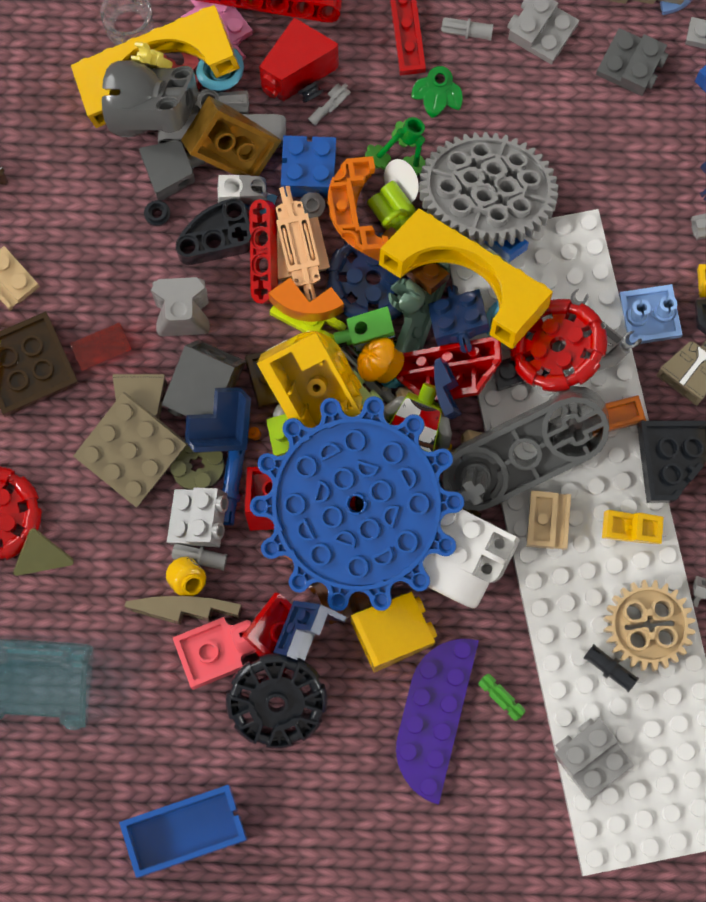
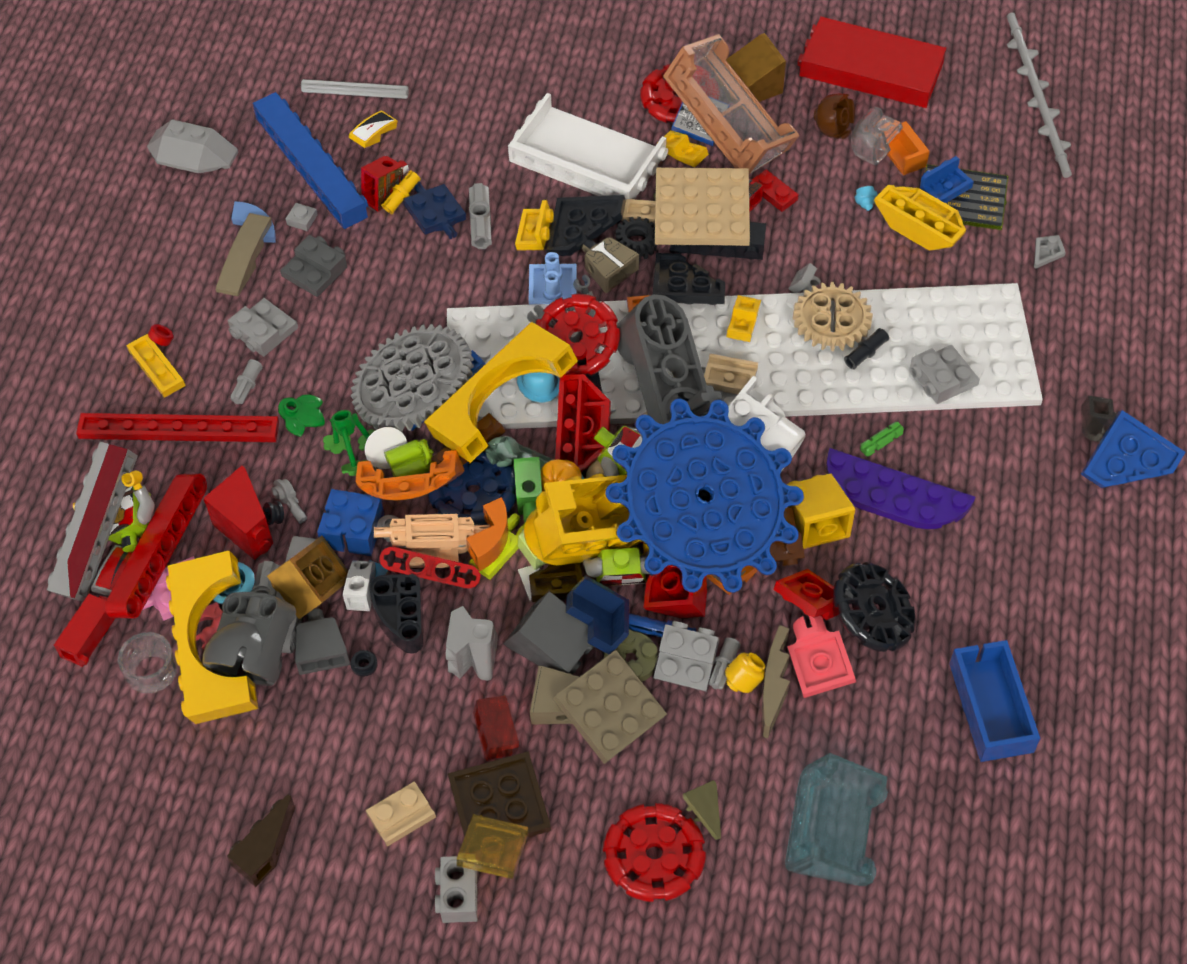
camera: 80 degrees left, 20 degrees down
(150, 57) = (202, 636): light yellow plate -> none
(301, 626) = (804, 562): dark blue panel -> none
(444, 383) = (595, 421): dark blue slope -> none
(458, 318) = (533, 412): dark blue plate -> none

